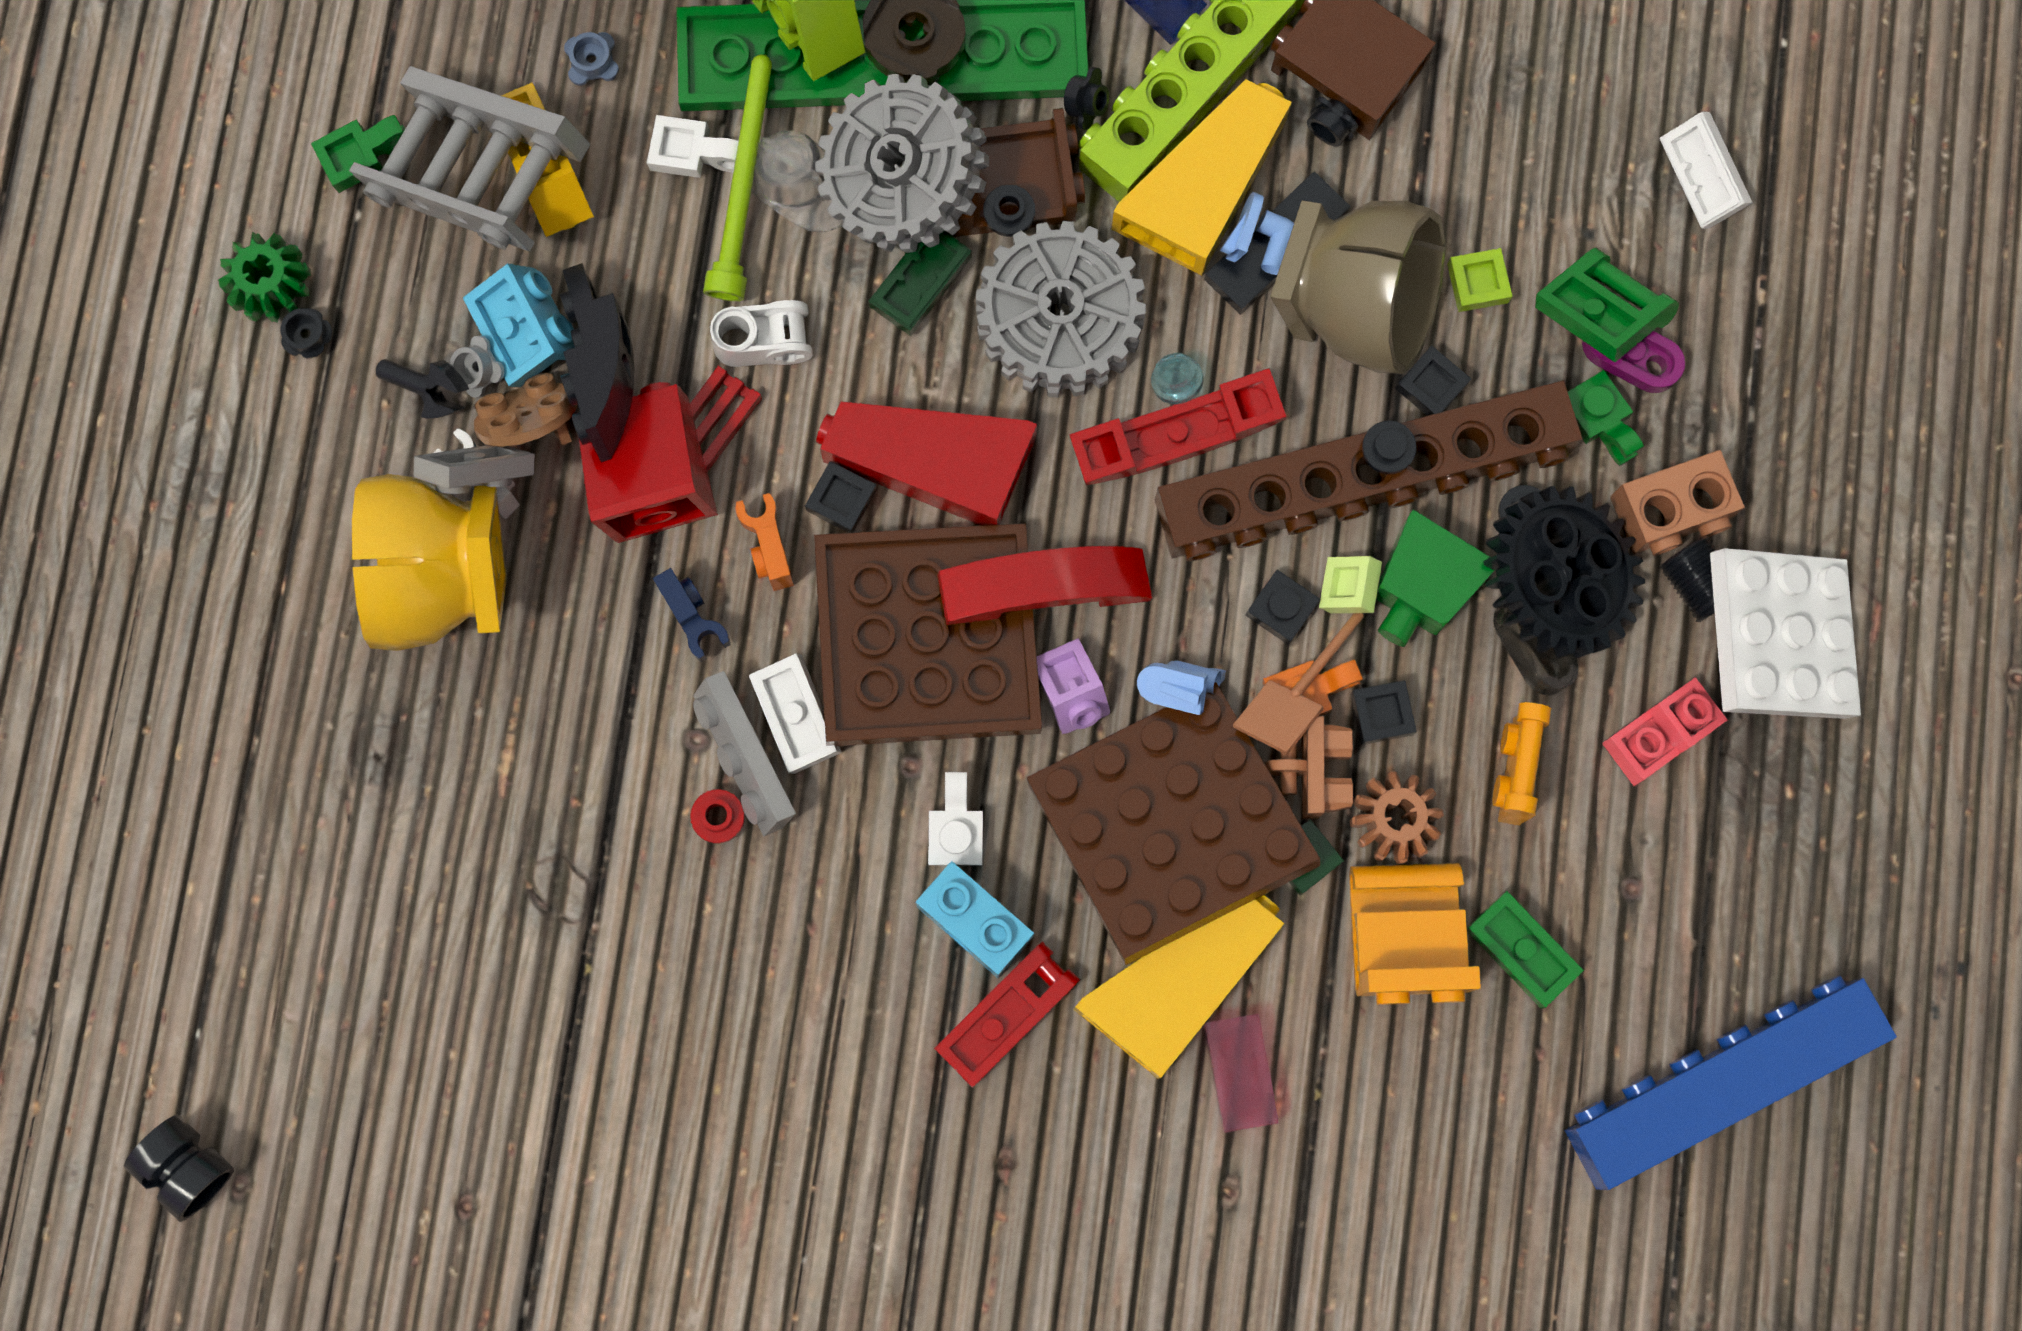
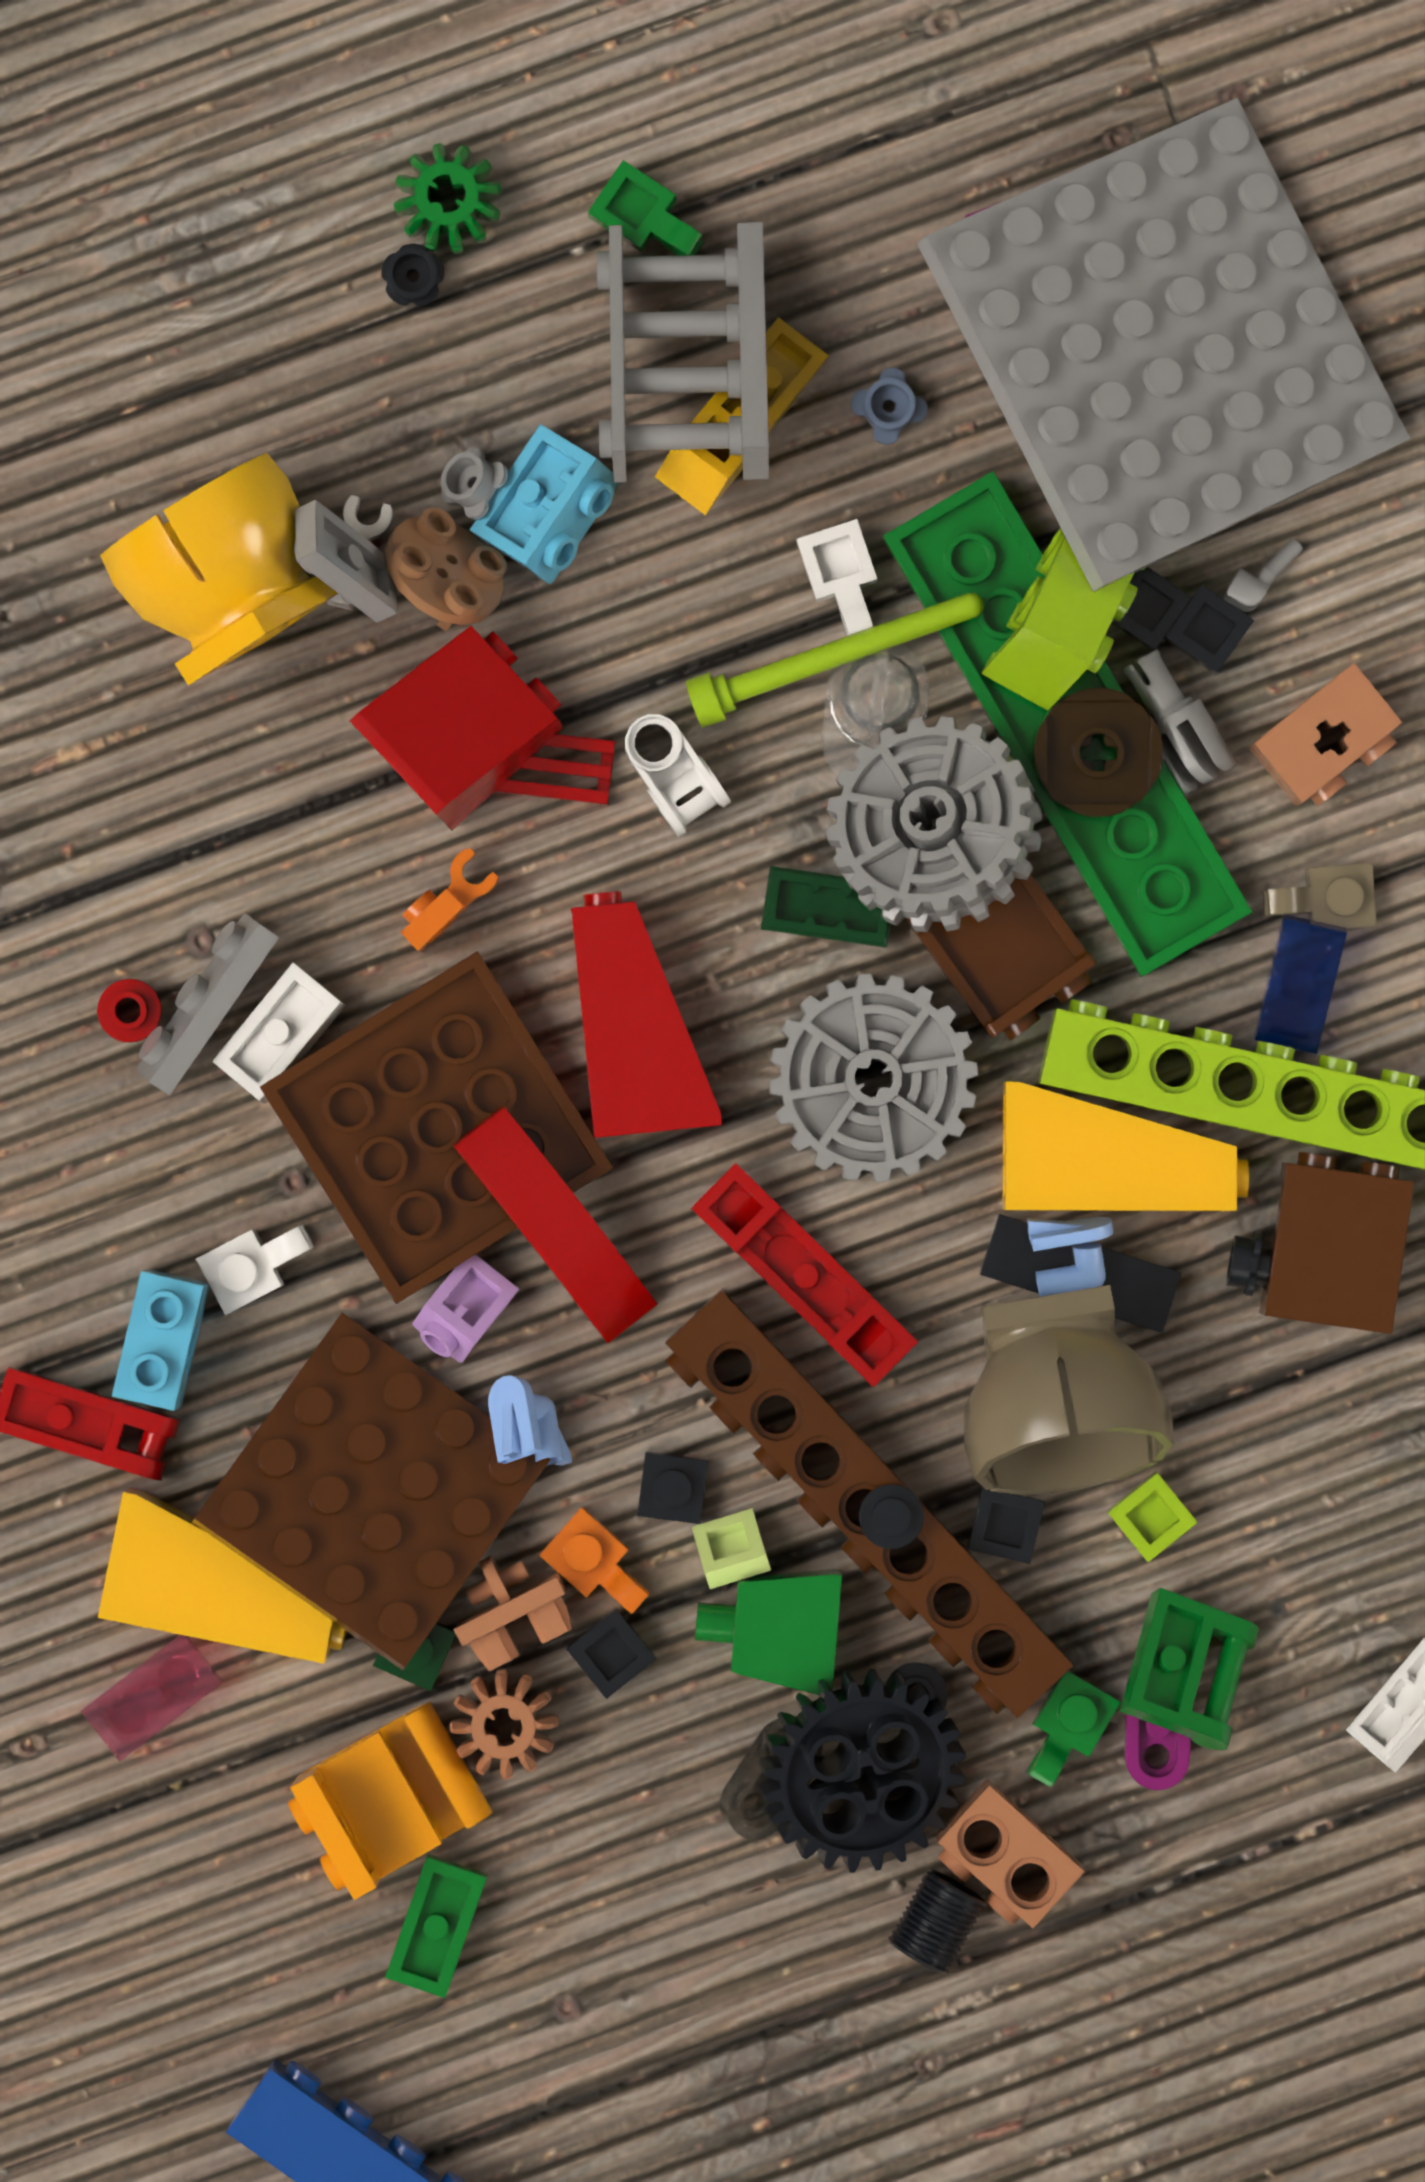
camera: 60 degrees right, 10 degrees up
(440, 374) = (423, 445): black bar -> none
(599, 364) = (536, 628): black slope -> none
(683, 602) = (334, 849): dark blue plate -> none
(841, 497) = (538, 954): black plate -> none
(1009, 224) = (936, 980): black plate -> none
(1086, 97) = (1122, 983): black plate -> none
(1177, 378) = (863, 1245): clear light blue plate -> none
(1284, 715) = (544, 1549): nougat piece -> none
(1522, 745) = (600, 1833): light orange plate -> none
(1664, 731) = (752, 1961): coral slope -> none
(1784, 634) = (917, 2038): white plate -> none

